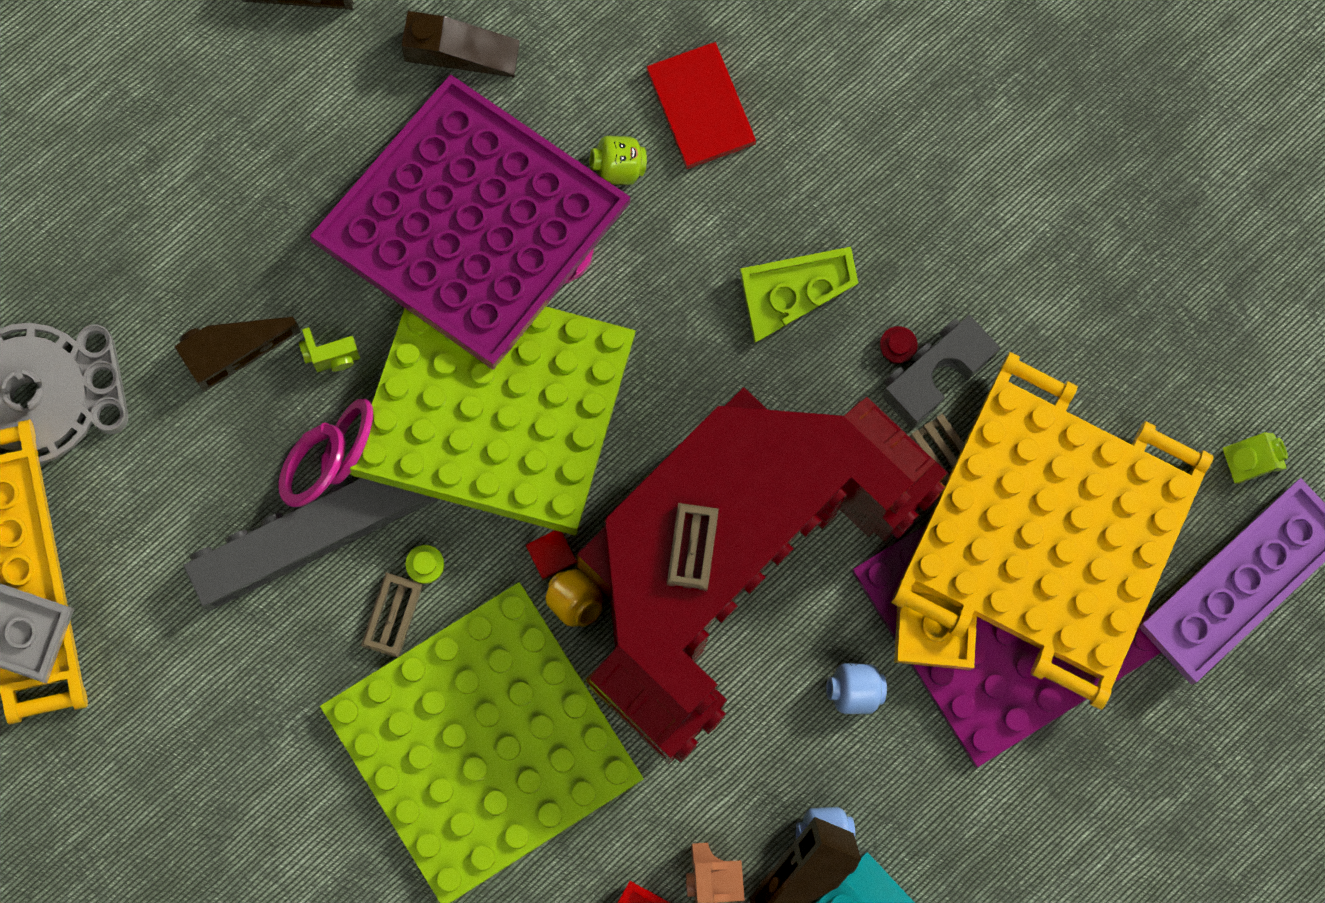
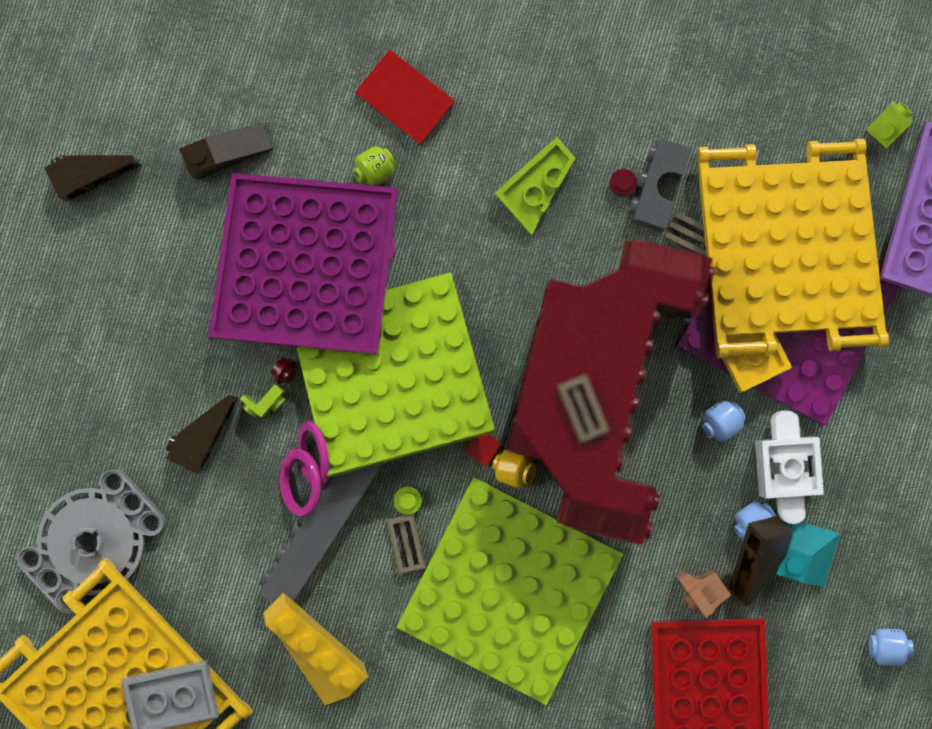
camera: 20 degrees left, 10 degrees up
(208, 682) = (320, 656): none -> yellow wedge
(372, 329) = (284, 370): none -> dark red plate
(903, 787) = (789, 467): none -> white brick

